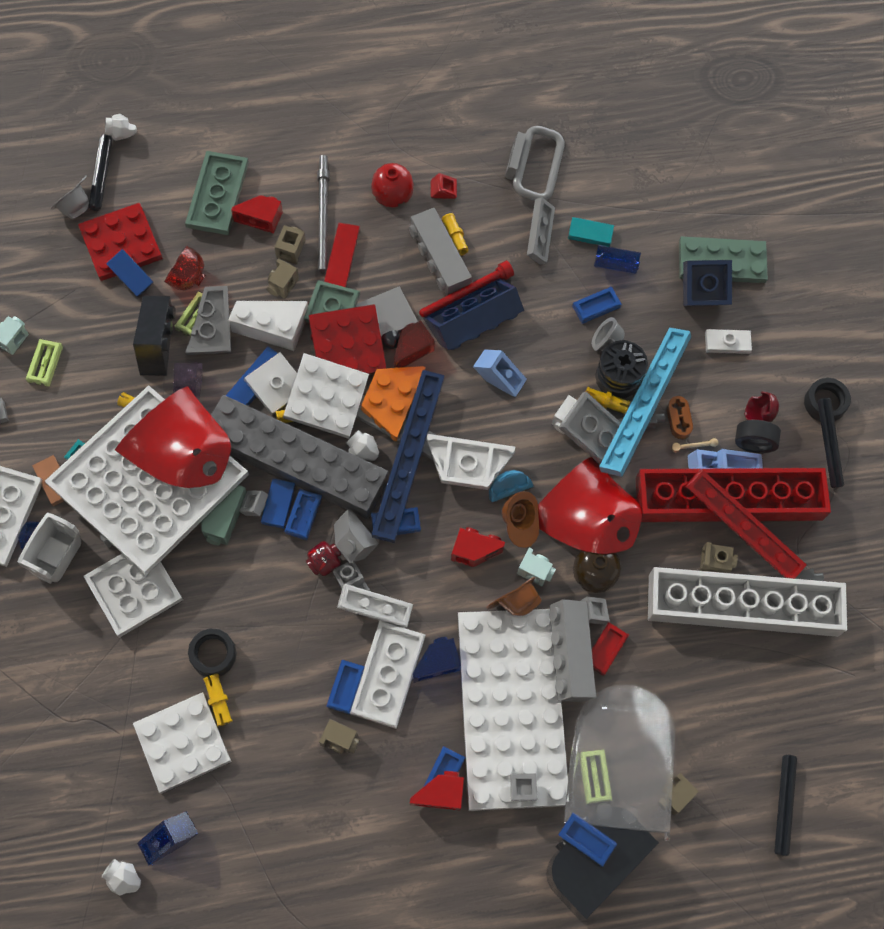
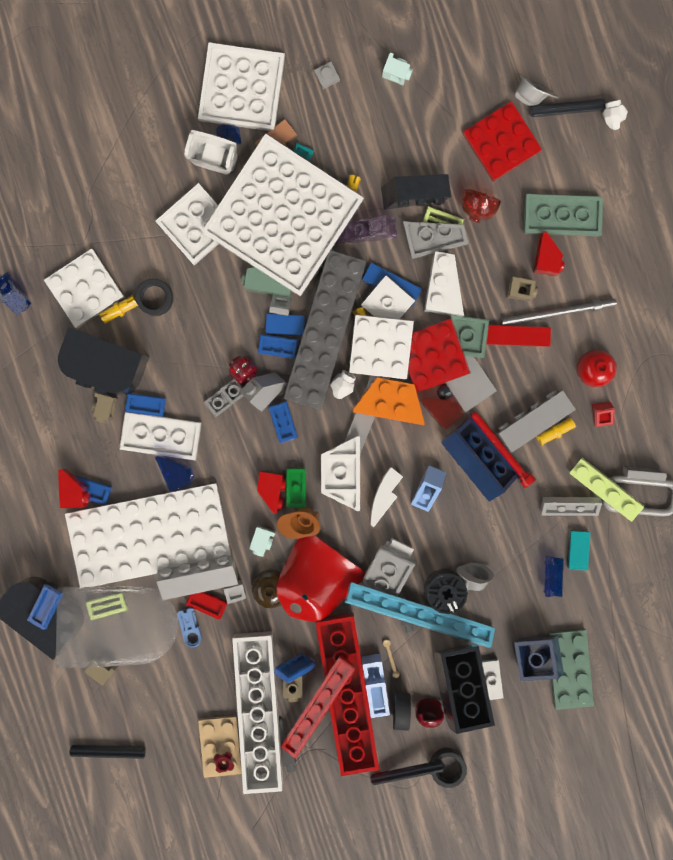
camera: 90 degrees right, 20 degrees up
(52, 364) = (386, 113): yellowish green tile -> none
(129, 273) = (470, 157): blue tile -> none
(168, 436) = (318, 230): red piece -> none
(282, 279) = (486, 288): dark tan brick -> none
(282, 727) = (100, 363): none -> black brick
(375, 606) = (209, 417): white tile -> none
(408, 457) = (339, 424): dark blue plate -> none
(479, 518) = (296, 488): none -> green plate
(501, 421) = (384, 495): none -> white slope
(509, 484) = (330, 509): dark azure plate -> none
(519, 601) = (230, 531): dark orange piece -> none
(523, 787) = (83, 553): light grey plate -> none
(527, 192) = (607, 489): none -> yellowish green plate
(596, 305) = (507, 563): blue tile -> none
(609, 401) = (418, 581): yellow pin -> none
(632, 674) = (189, 625): none -> medium blue piece
(684, 417) = (411, 639): dark orange beam -> none
(695, 548) = (294, 668): none -> blue plate
(735, 362) = (463, 688): none -> black brick
(786, 659) = (218, 737): none -> tan plate
(811, 647) = (220, 767): none -> dark red plate

